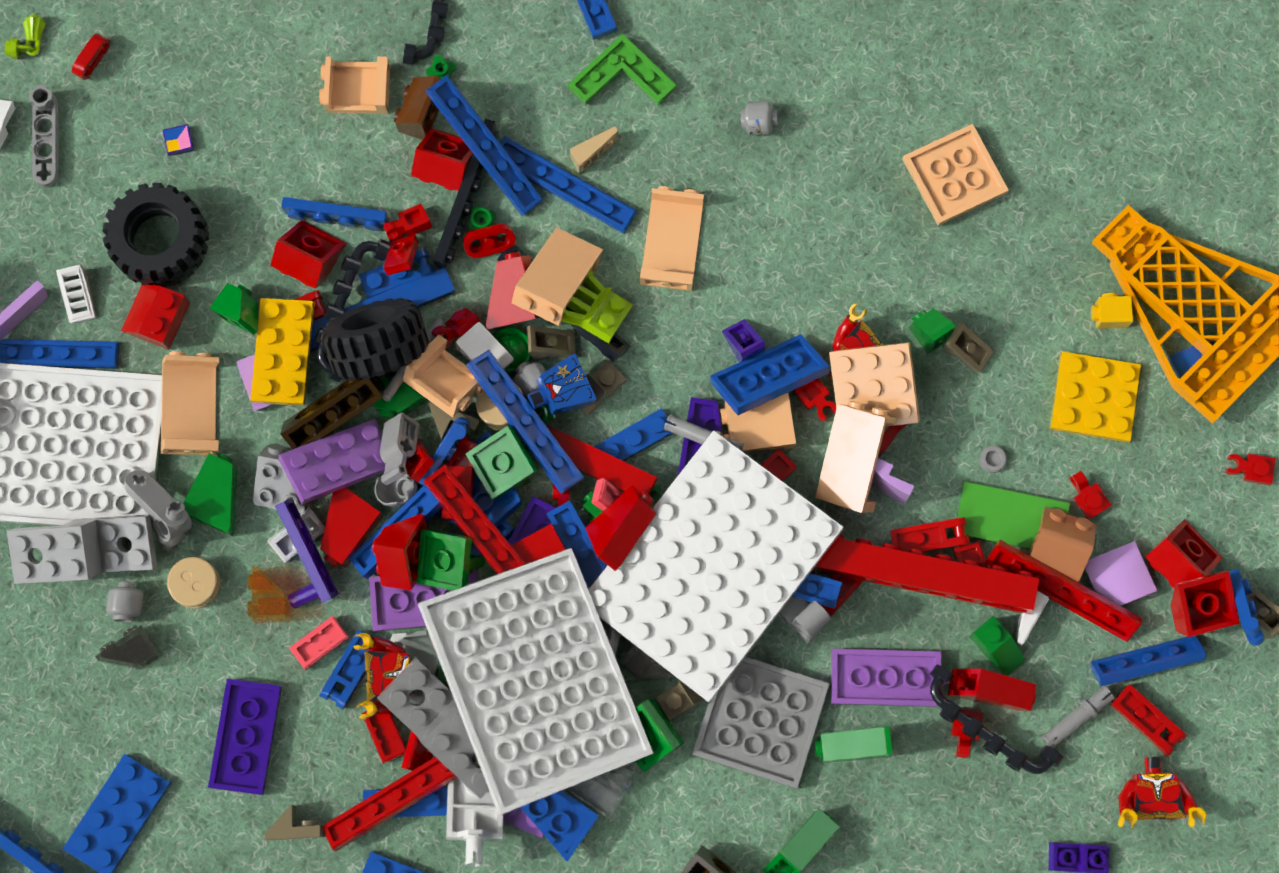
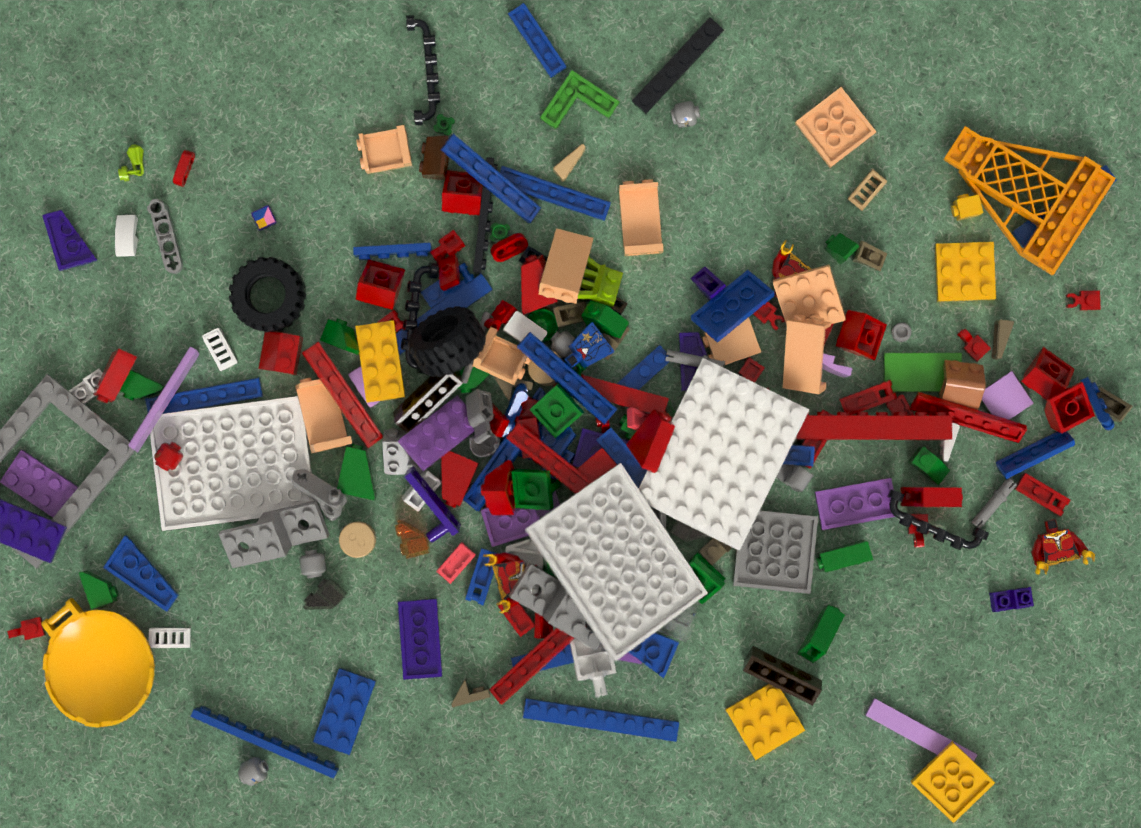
camera: 15 degrees left, 10 degrees up
(221, 384) = (342, 394): none -> red tile
(594, 356) = (604, 319): none -> green slope
(762, 57) = (677, 65): none -> black plate
(937, 450) = (861, 334): none -> red slope
(1001, 251) = (878, 177): none -> tan slope
(1130, 486) = (1002, 331): none -> dark tan slope

